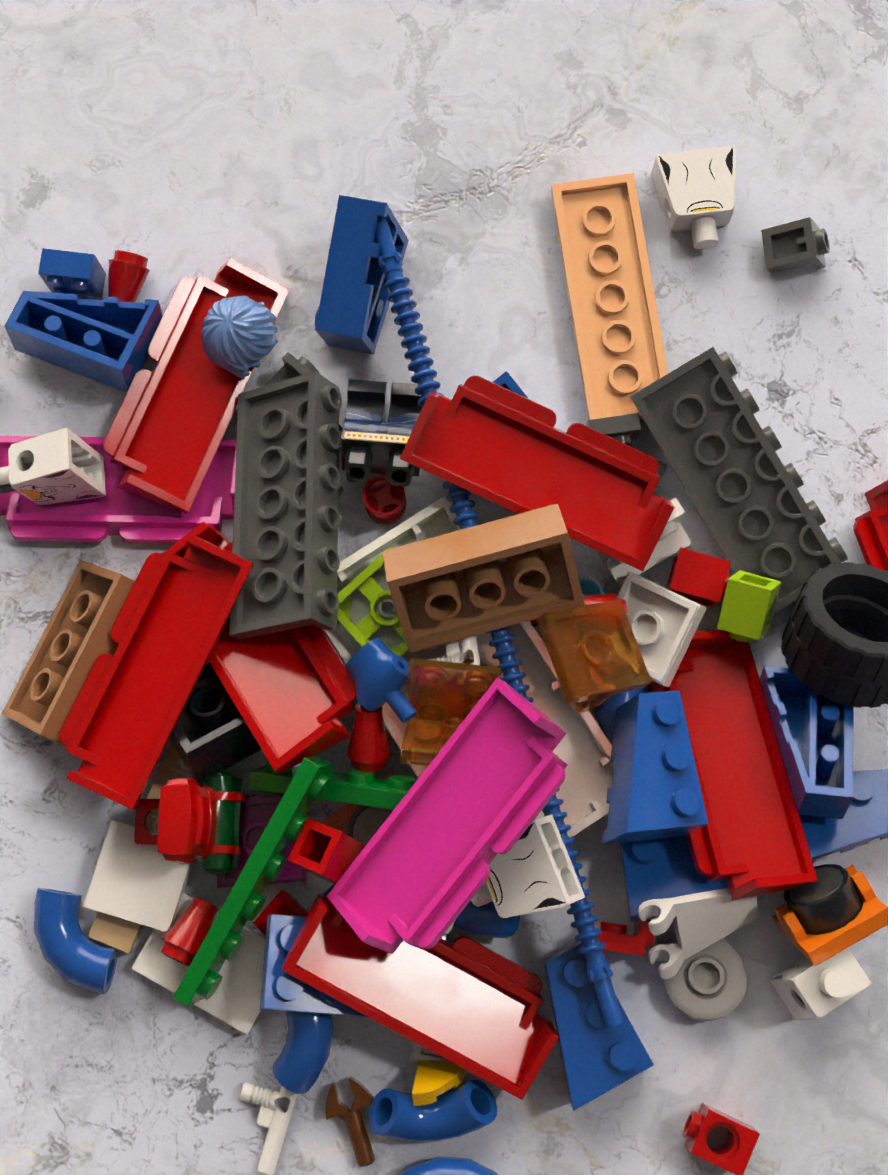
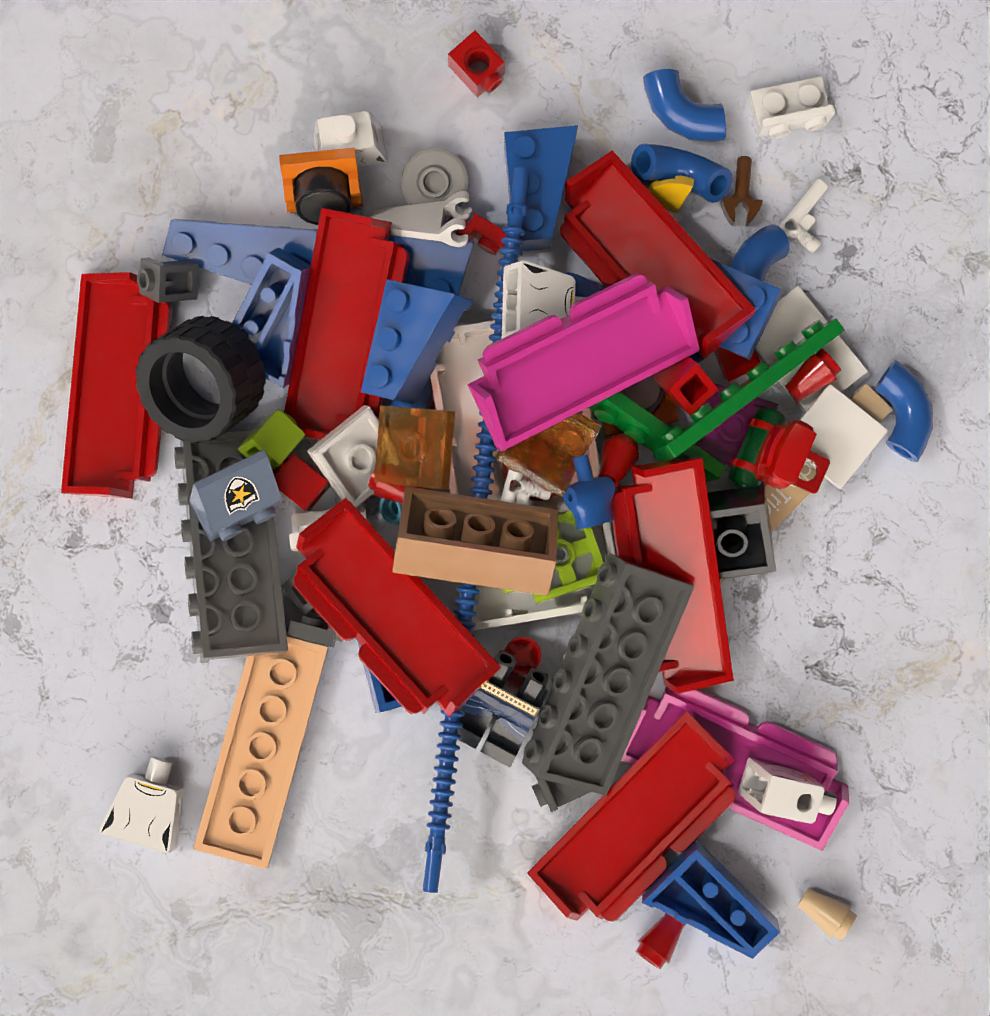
camera: 165 degrees left, 5 degrees up
(68, 649) = (817, 631): medium nougat slope -> none
(72, 273) = (707, 966): blue piece -> none
(142, 689) = (779, 574): red slope -> none
(238, 334) = (585, 846): medium blue hair -> none
(353, 284) = (472, 847): blue wedge -> none
(758, 521) = (236, 497): none -> sand blue slope
(795, 245) = (88, 726): dark grey bracket -> none

